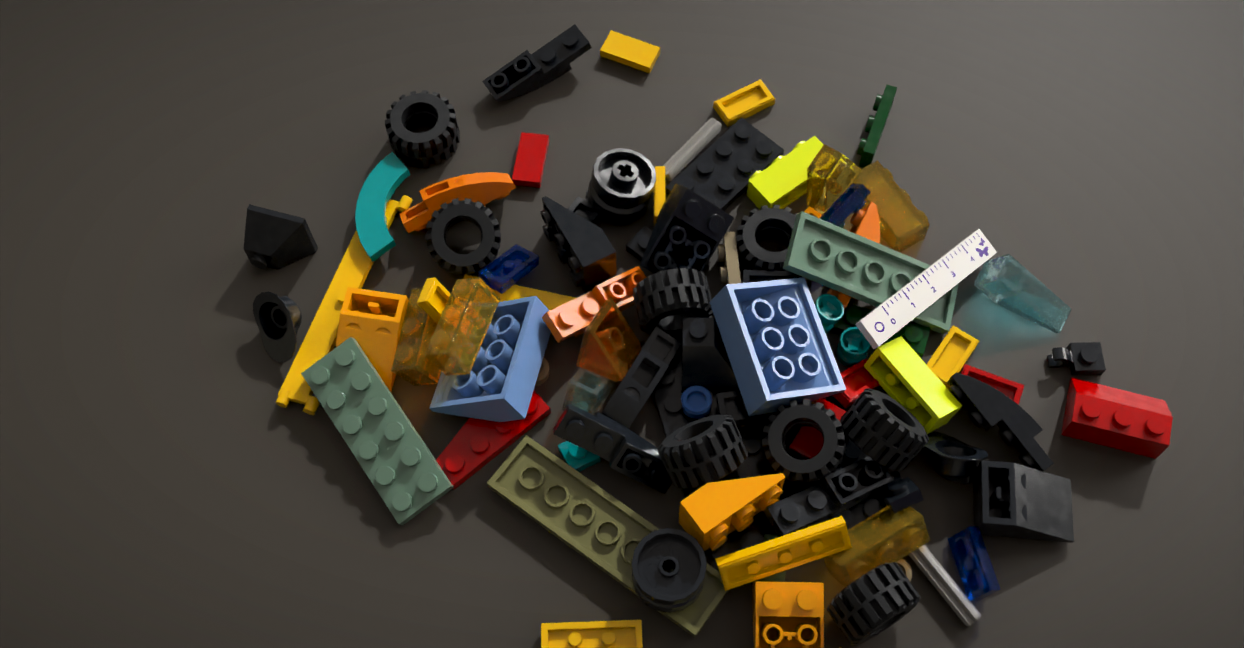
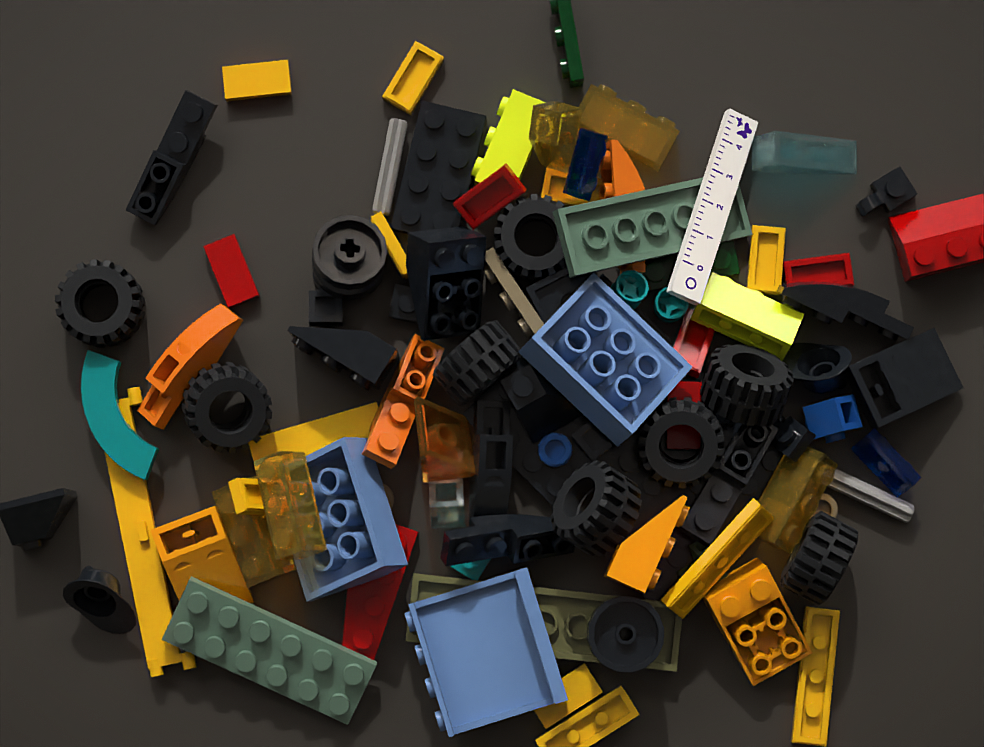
camera: 30 degrees left, 20 degrees up
(509, 268) = (290, 411): clear blue plate -> none
(544, 526) = (486, 652): none -> medium blue panel
(589, 604) = (580, 689): none -> yellow tile
(753, 194) = (489, 196): none -> red tile
(945, 499) = (833, 418): none -> blue brick

